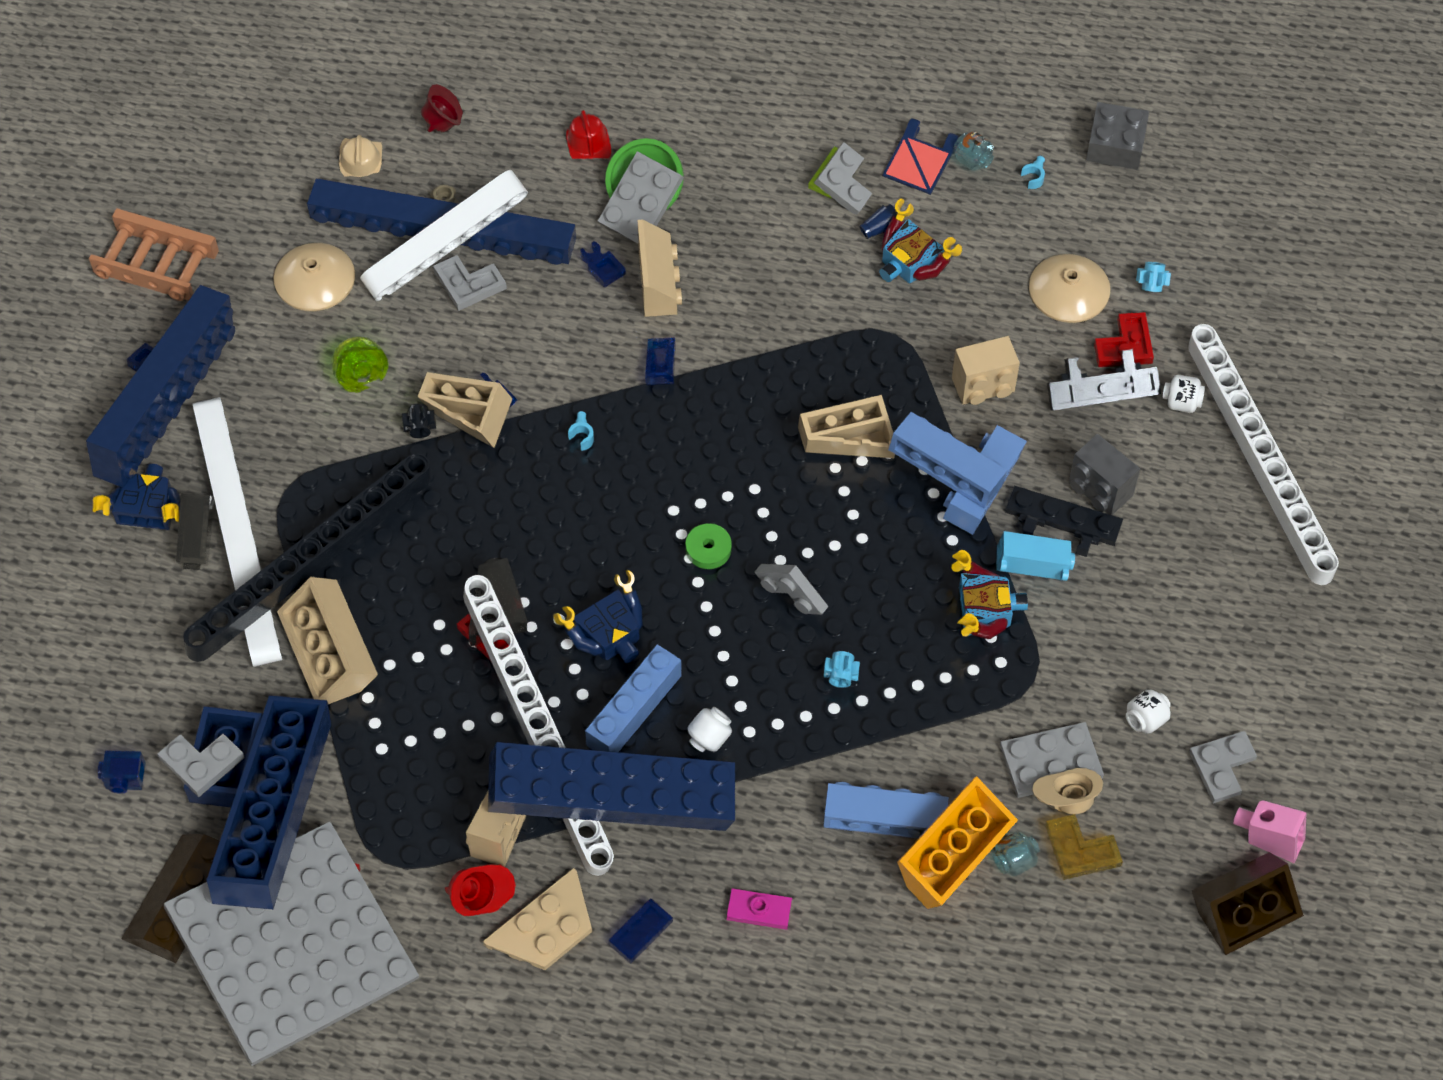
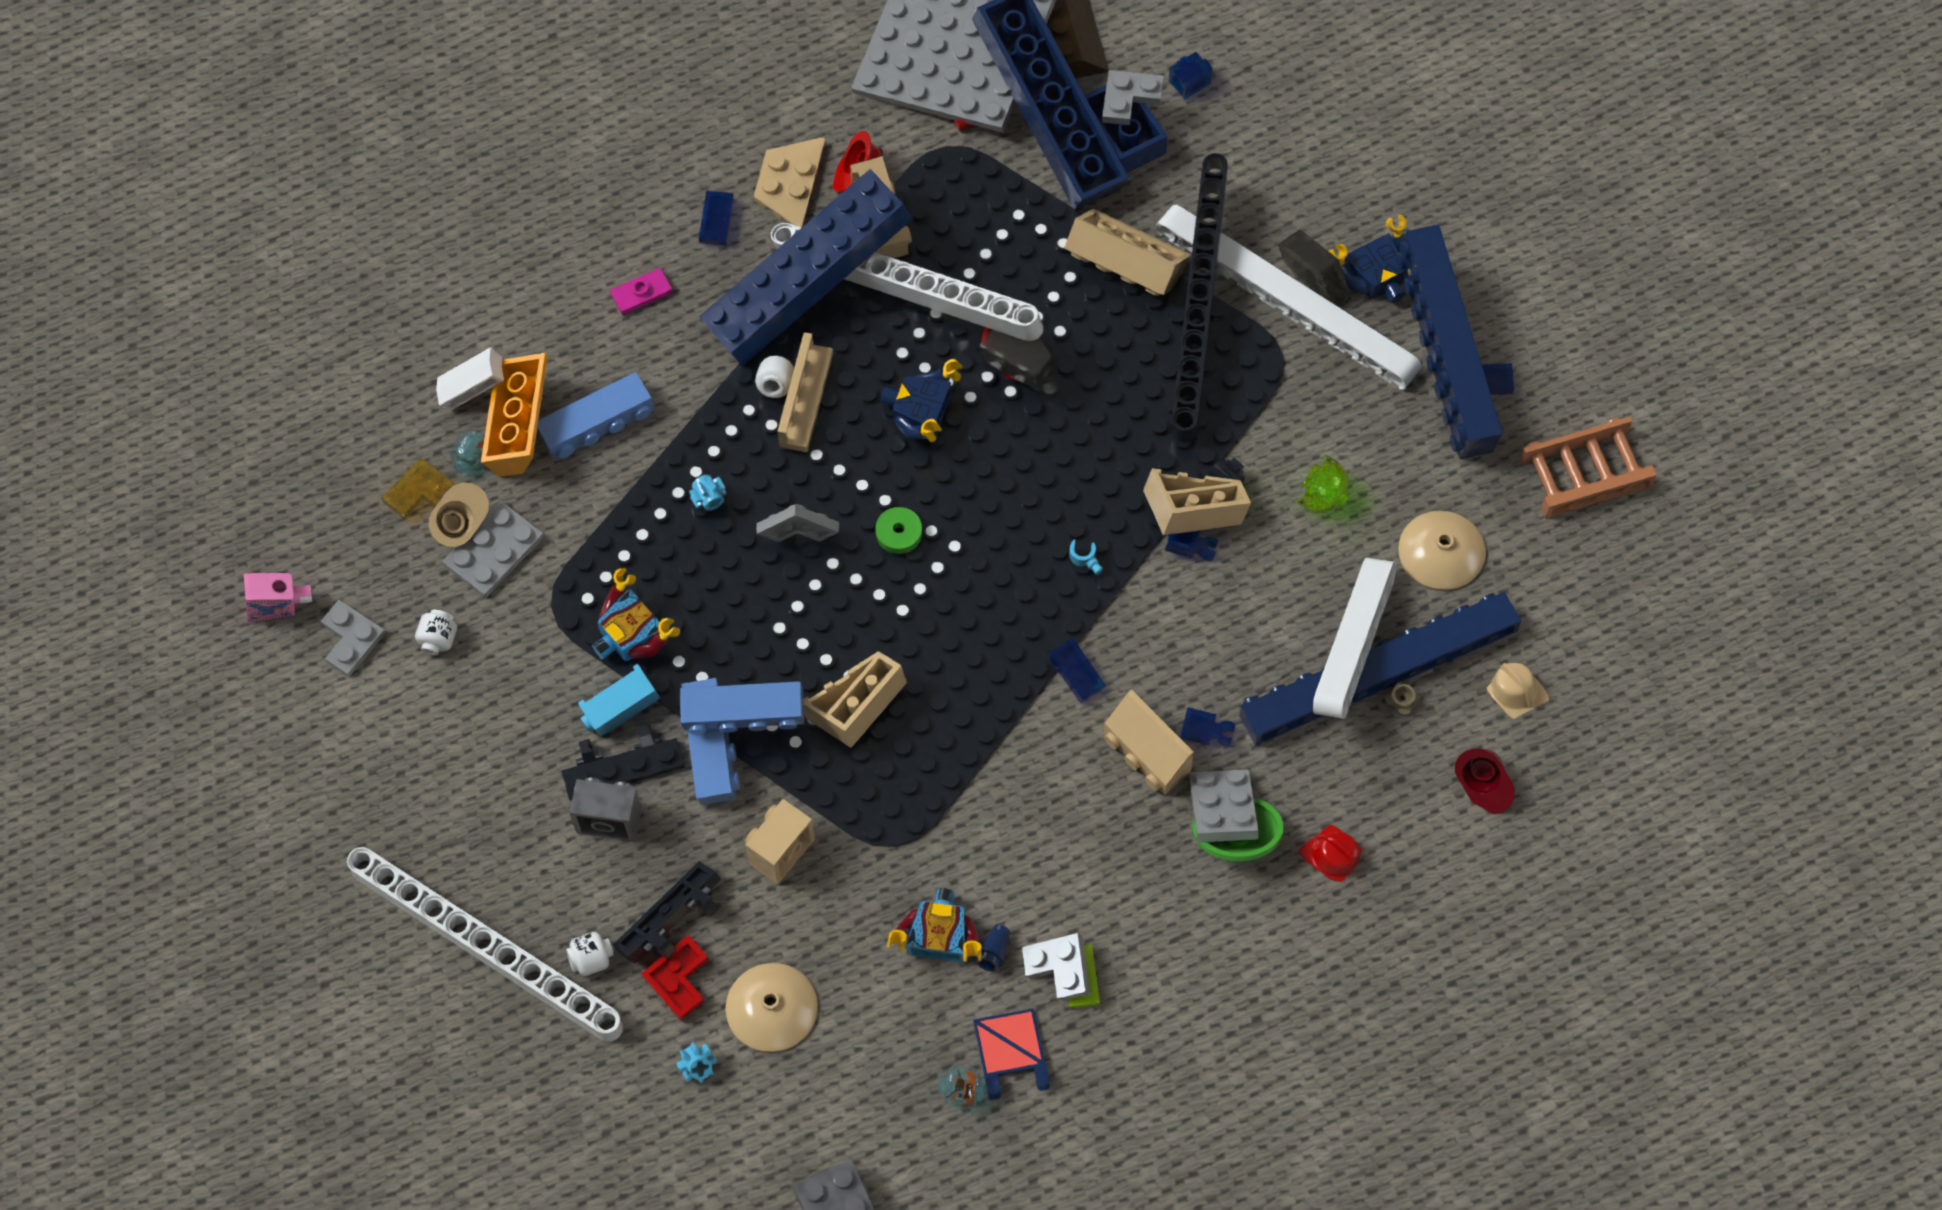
camera: 145 degrees right, 5 degrees up
(468, 288) = (1301, 623): light grey plate -> none
(634, 701) = (850, 359): medium blue brick -> none
(707, 693) = (804, 395): none -> tan fence
(977, 906) = (469, 379): none -> white piece
(1036, 168) = (893, 1118): medium azure piece -> none
(1248, 902) = (264, 531): dark brown slope -> none

